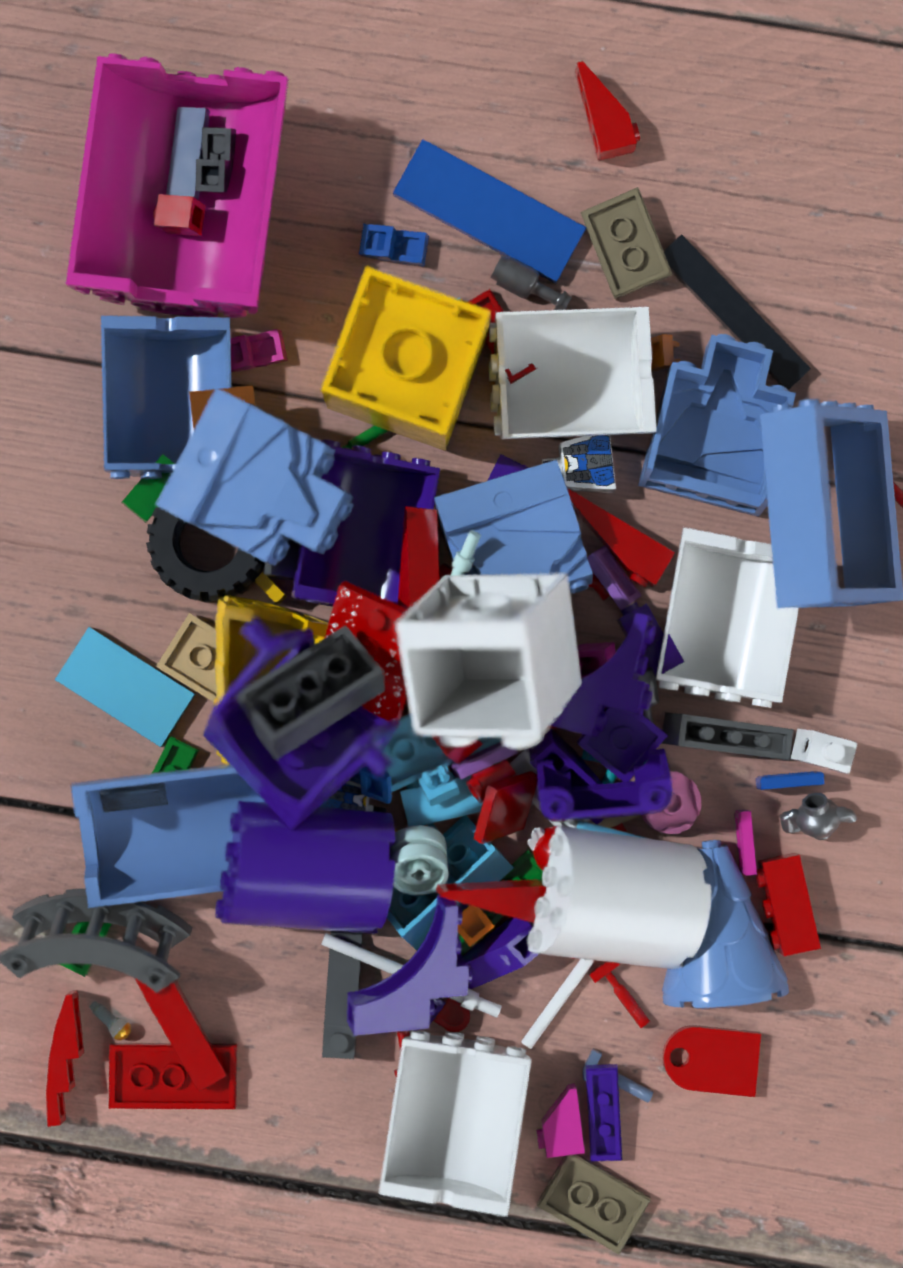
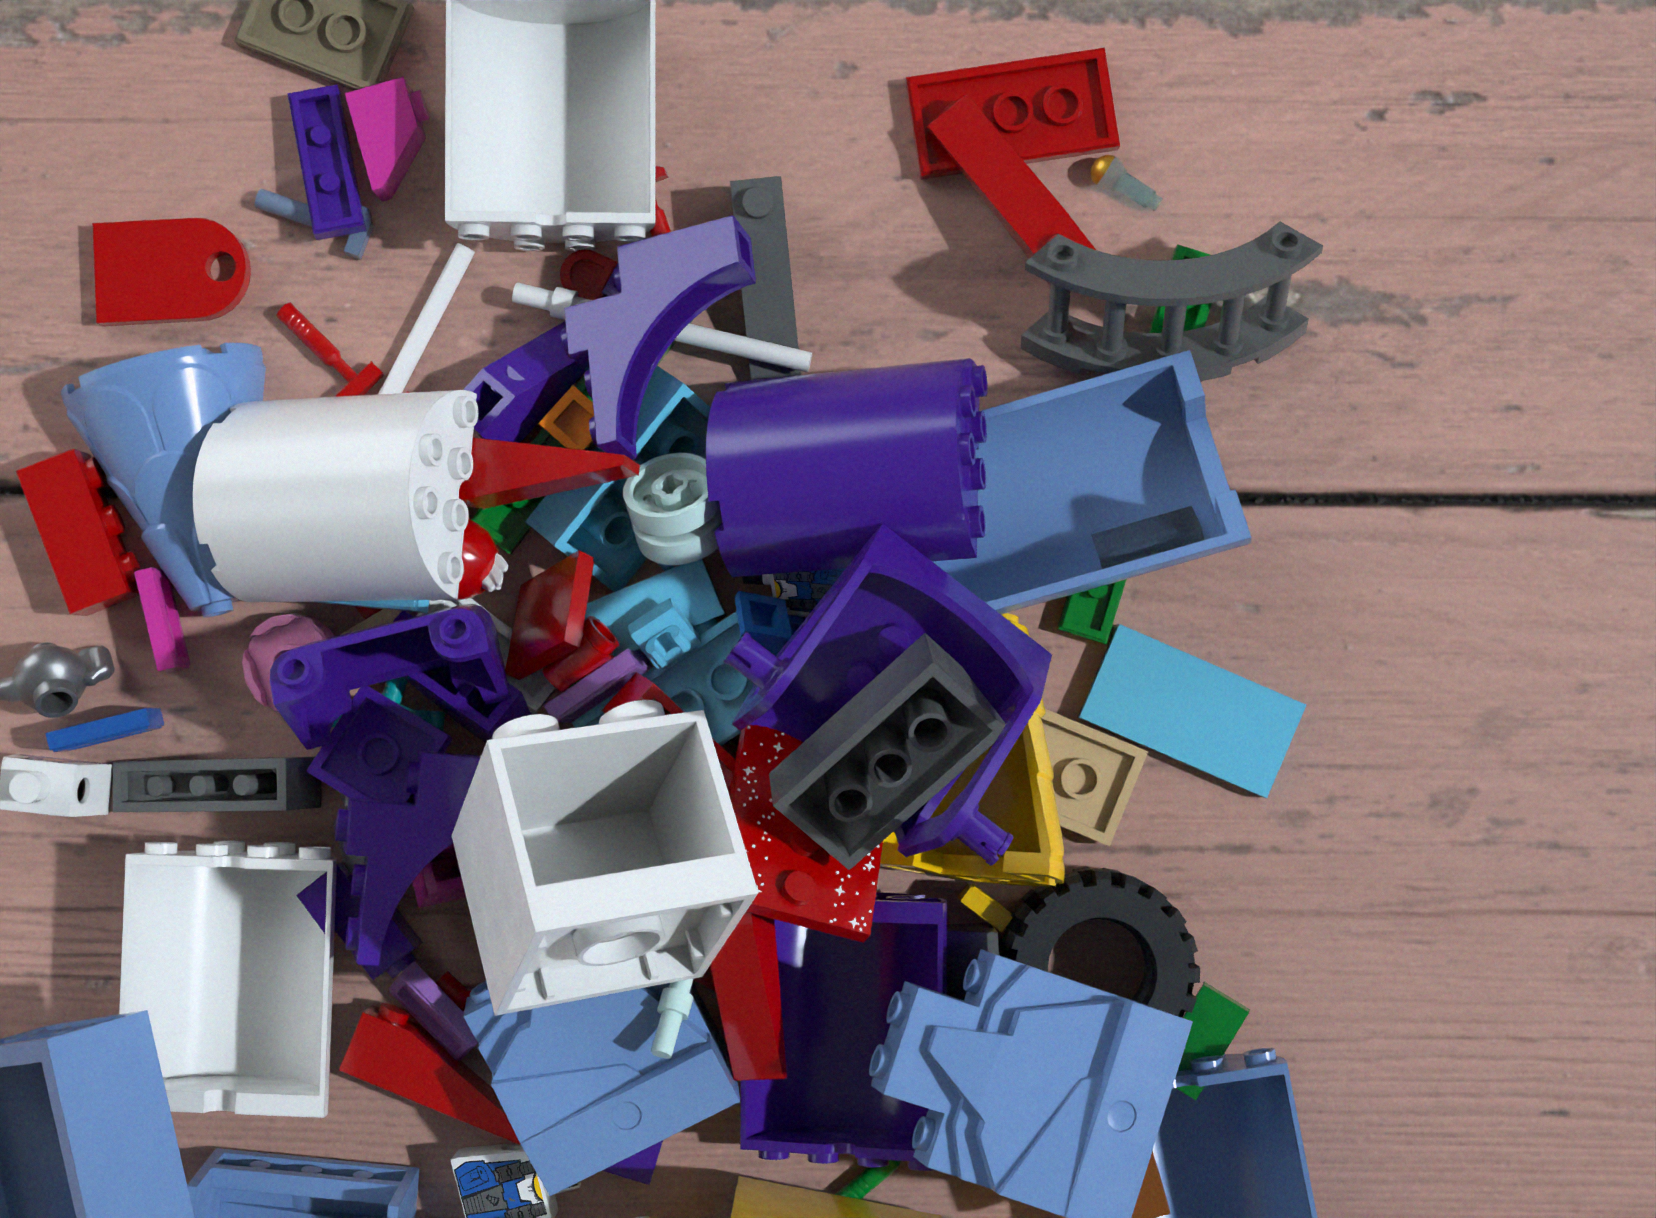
camera: 175 degrees right, 0 degrees up
(65, 1047) = (1187, 130): red slope -> none

